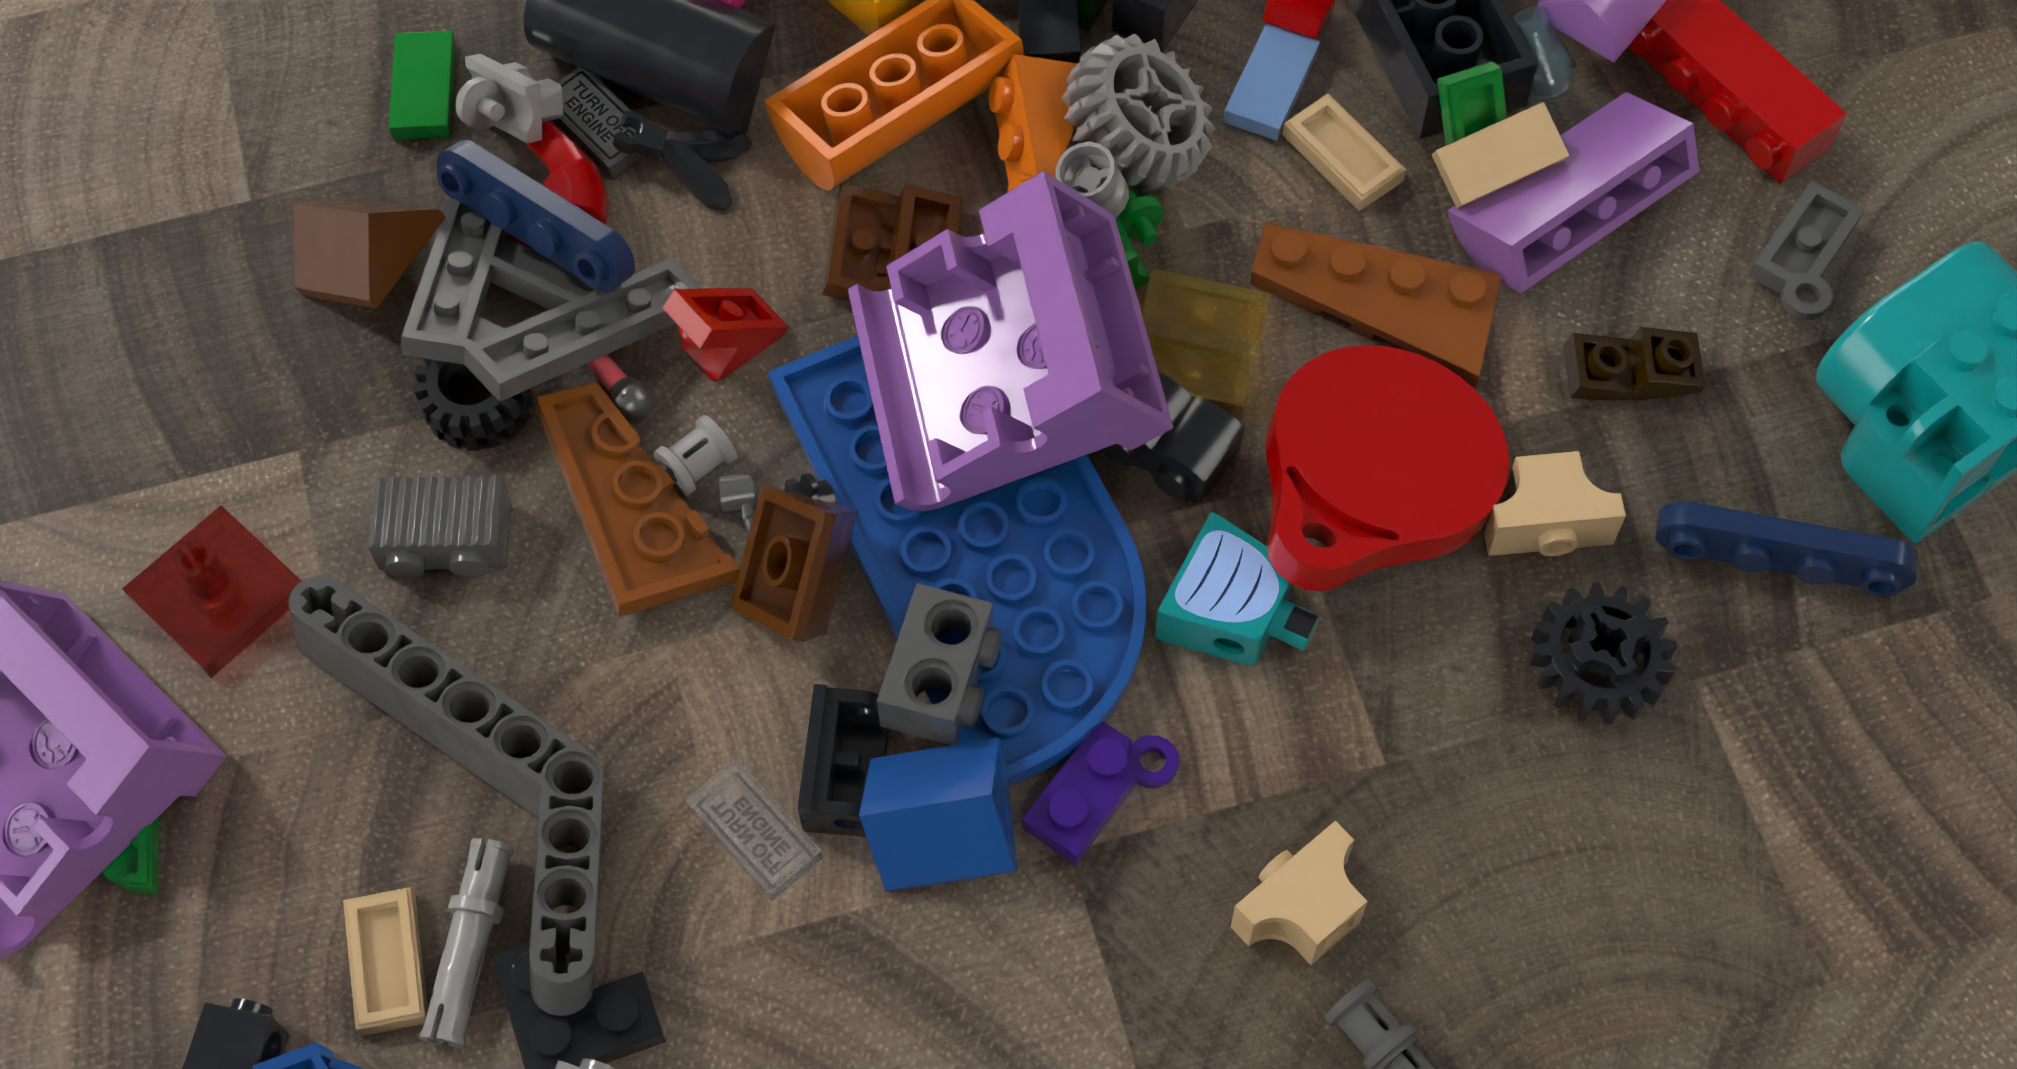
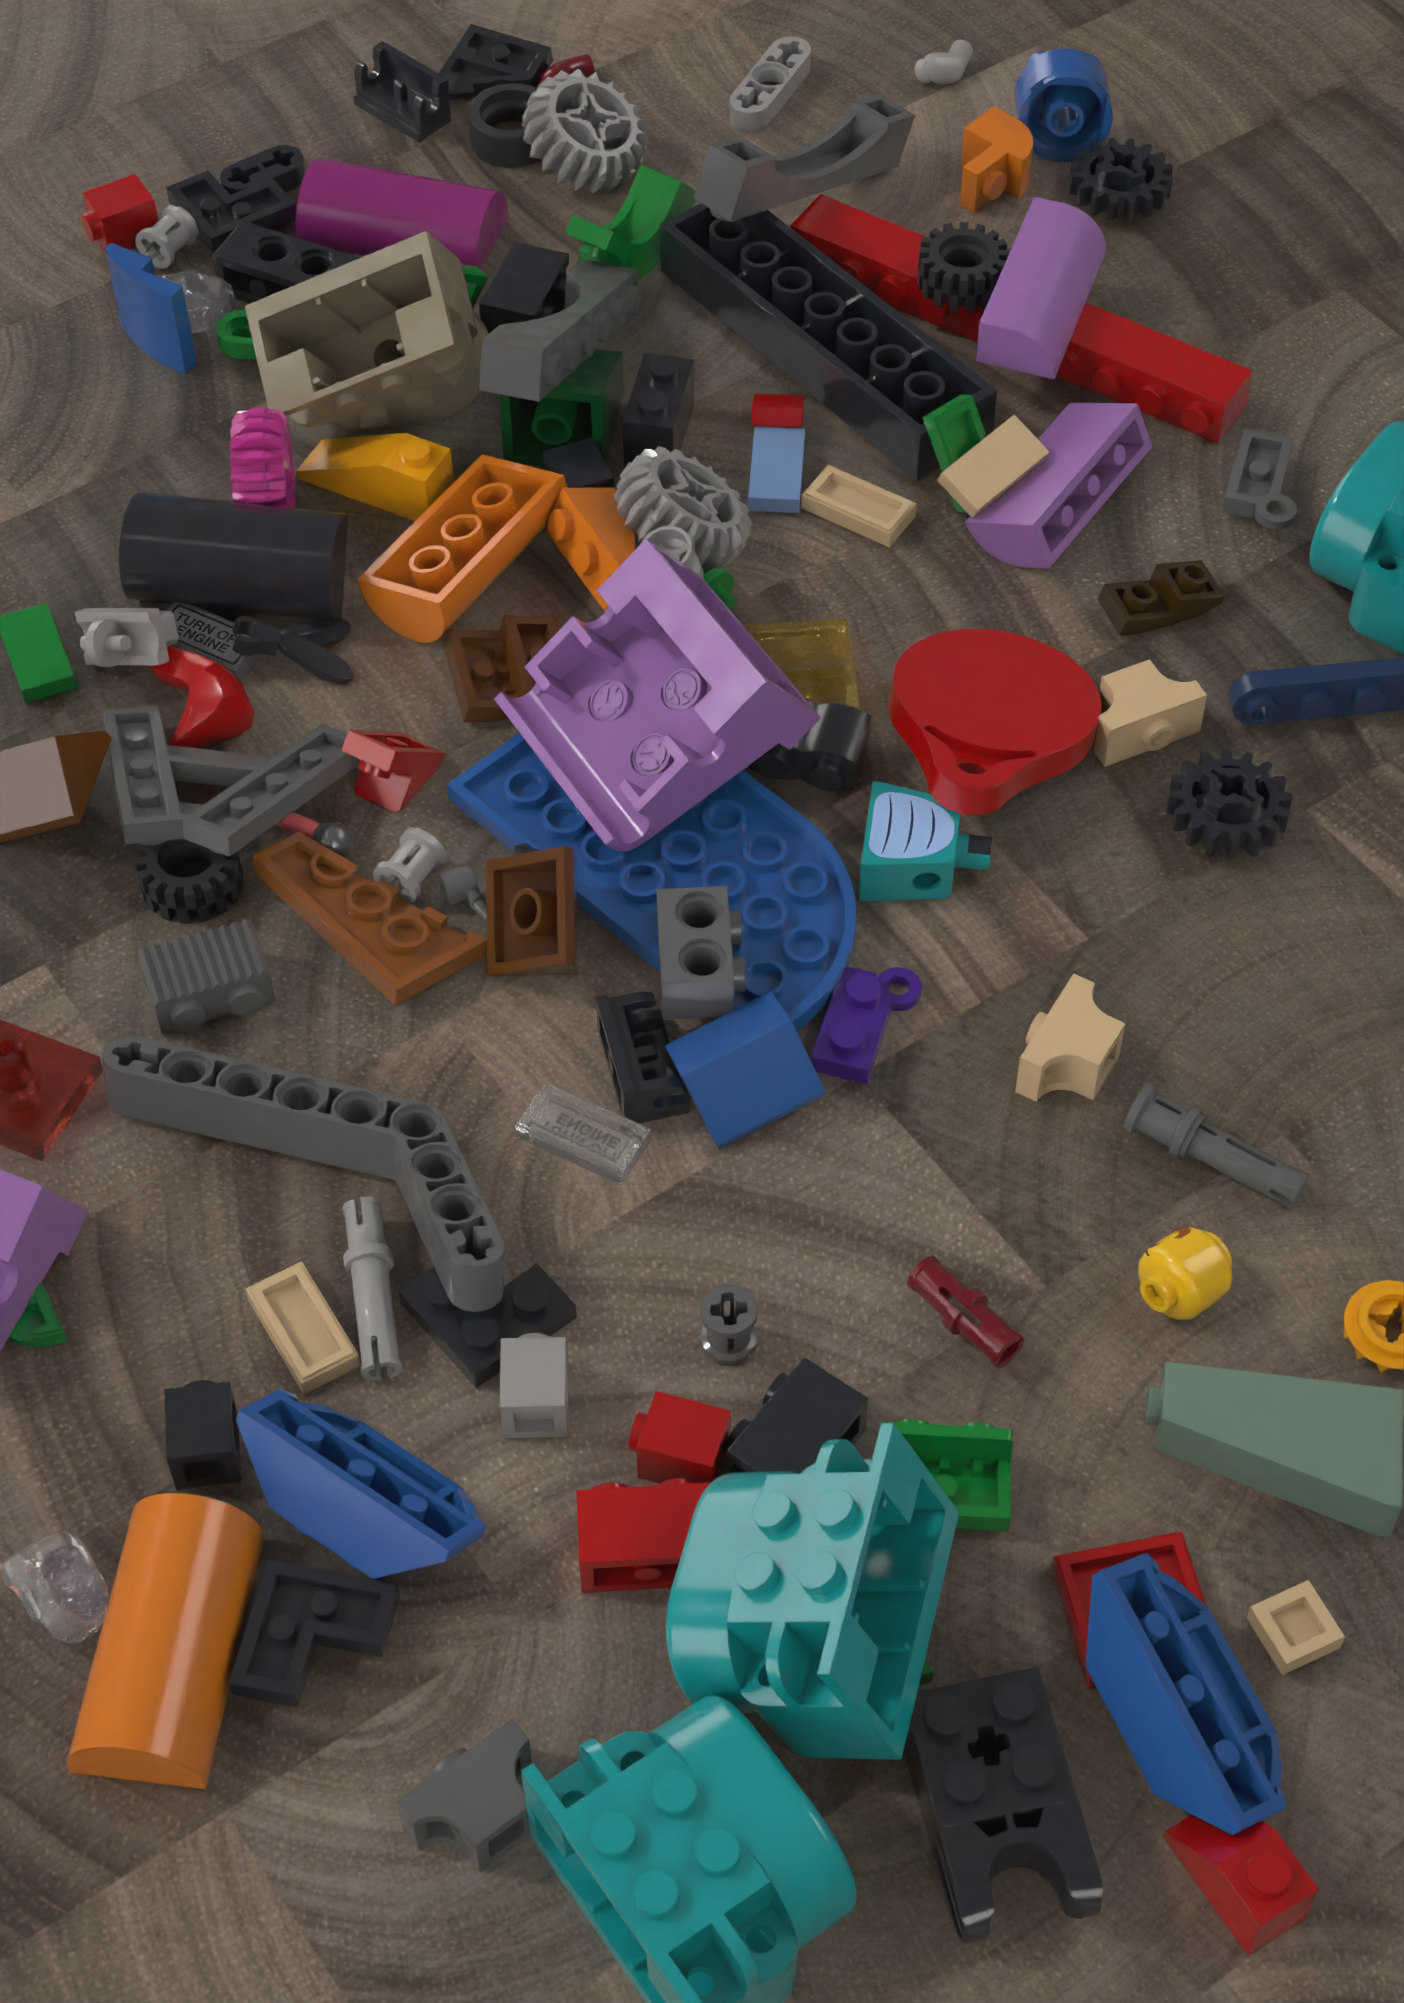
camera: 20 degrees left, 10 degrees down
(535, 215) = (195, 711): dark blue plate -> none
(1382, 292) = (934, 597): dark orange wing -> none
(1555, 61) = (1008, 394): clear light blue cone -> none

